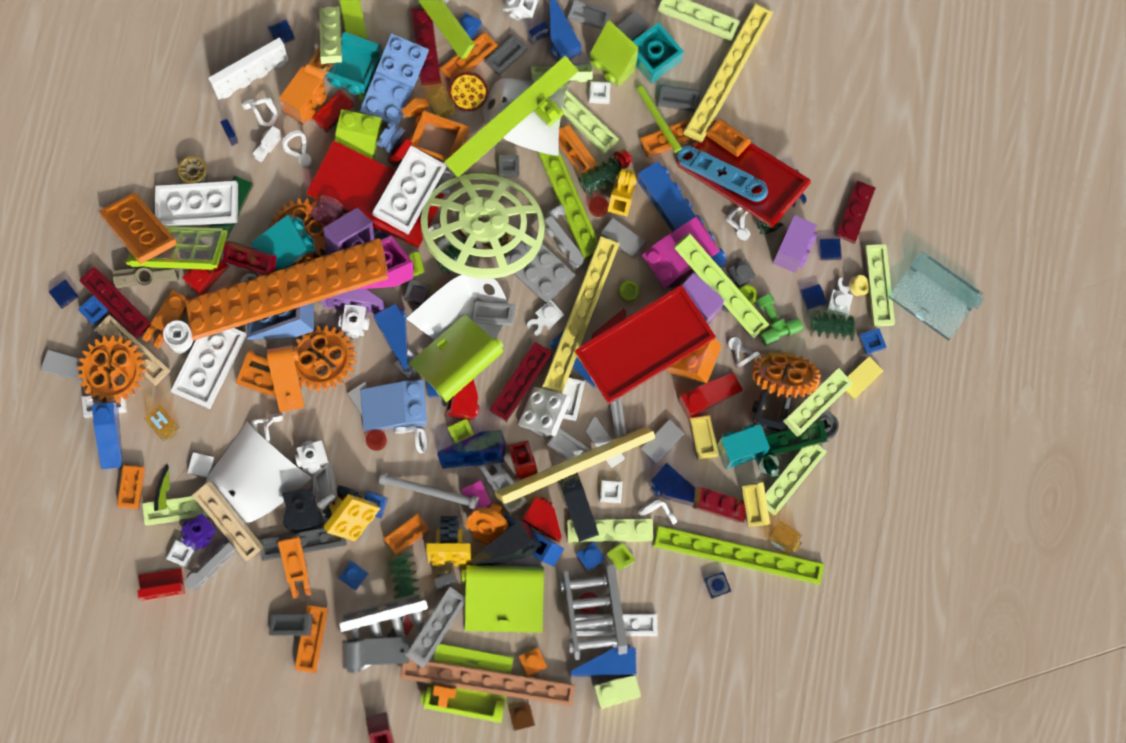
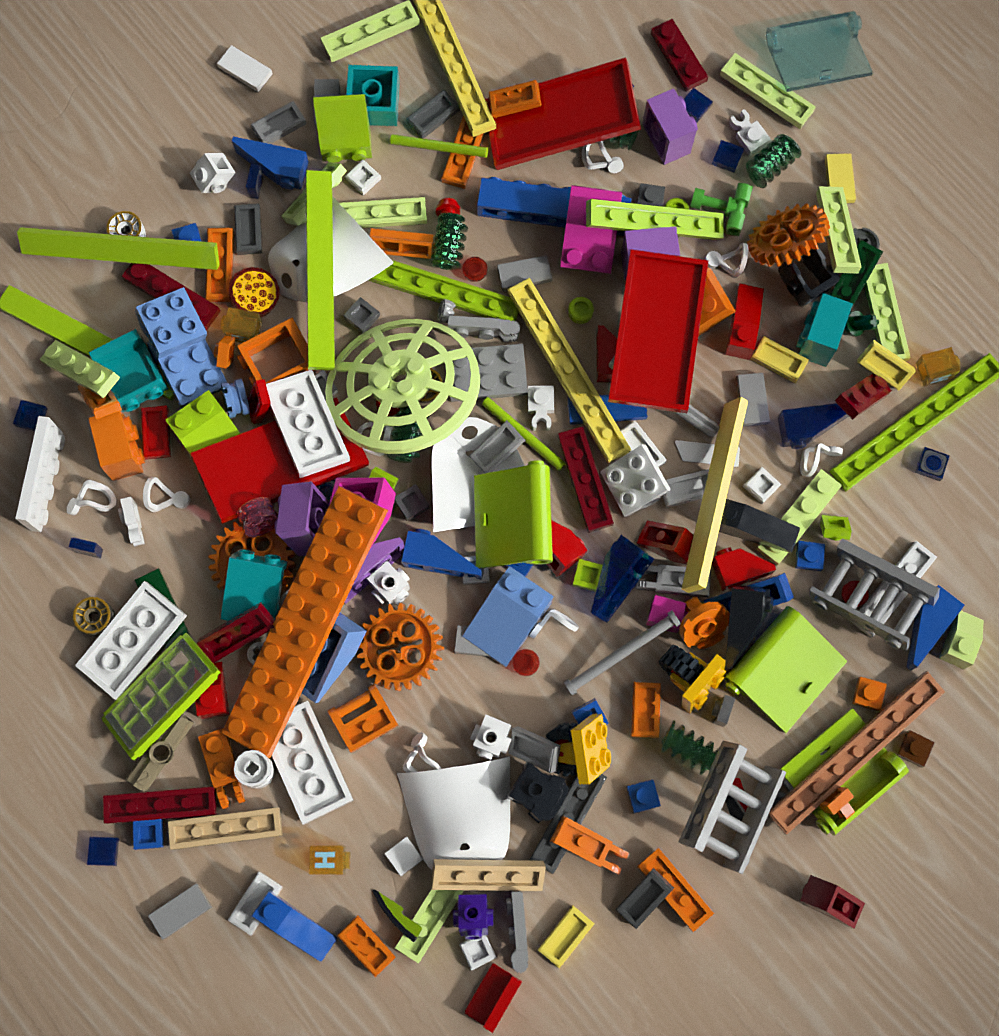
camera: 45 degrees left, 0 degrees up
(93, 369) = (211, 884): orange gear -> none
(137, 228) = (105, 718): orange plate -> none
(231, 598) = (565, 936): none -> light yellow tile
(285, 377) = (389, 697): orange door -> none
(373, 651) = (744, 836): dark grey door -> none
(436, 627) = (767, 757): light grey plate -> none
(518, 334) = (530, 439): none -> lime bar
(548, 112) = (346, 233): lime tile -> none
(623, 192) = (483, 234): yellow brick -> none
(734, 179) = (561, 126): dark azure piece -> none
(859, 285) = (752, 107): light yellow tile -> none
(872, 341) = (815, 140): blue plate -> none

